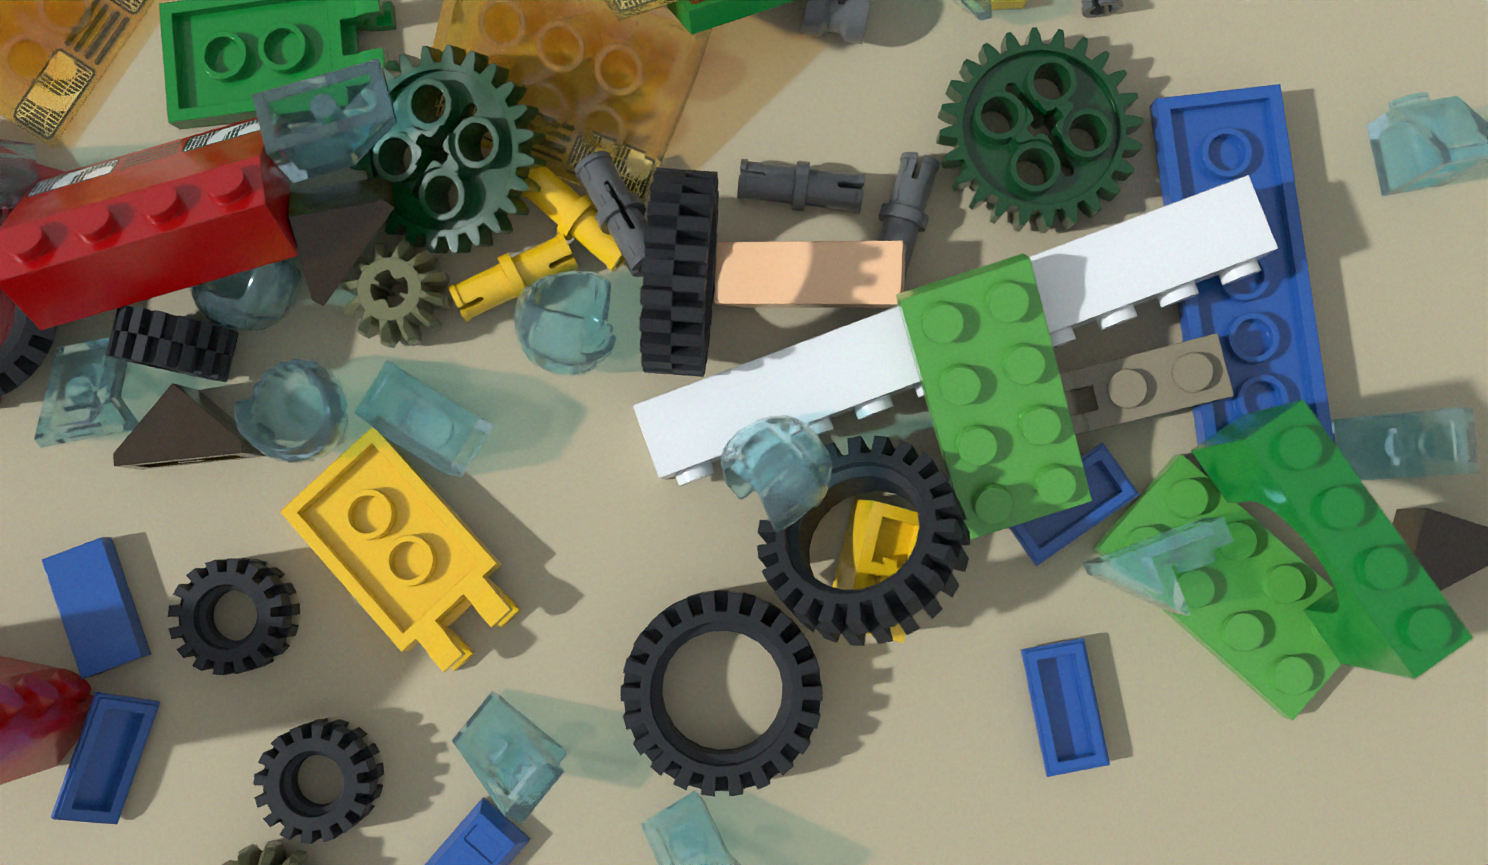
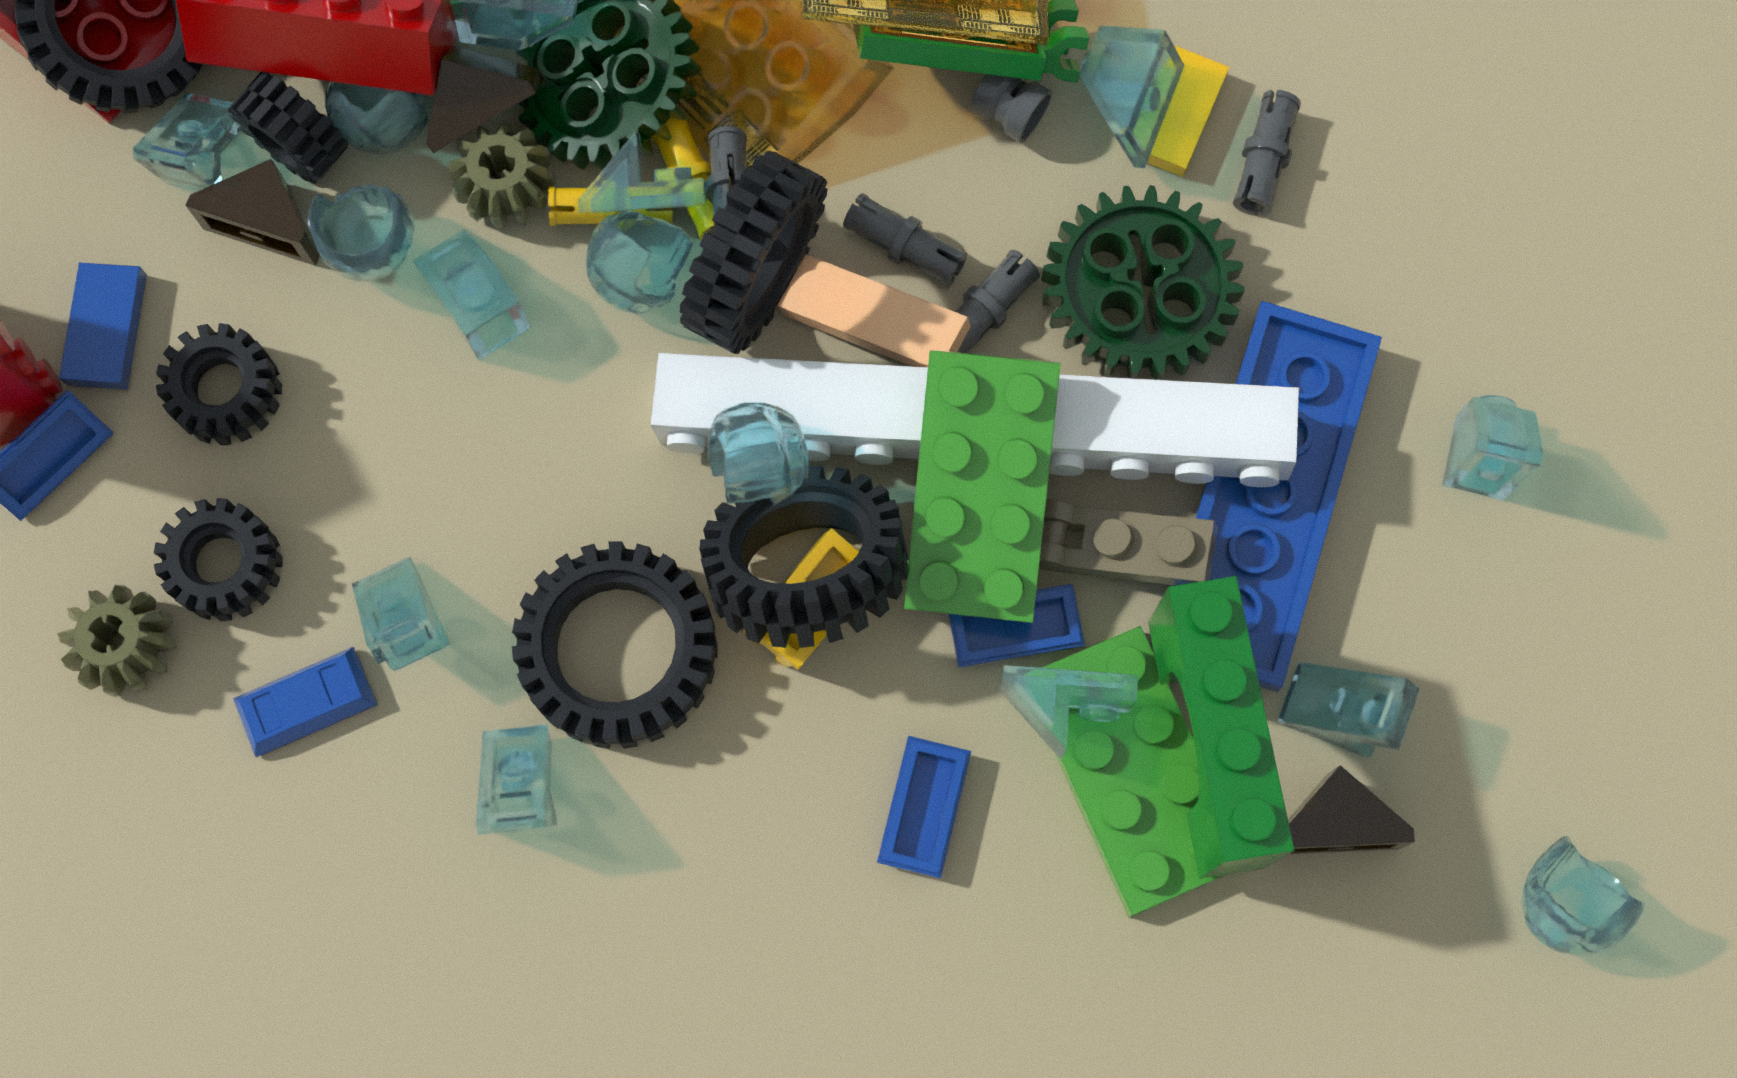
camera: 20 degrees right, 10 degrees down
(400, 549) = (393, 394): yellow tile -> none
(526, 266) = (622, 186): none -> clear light blue slope

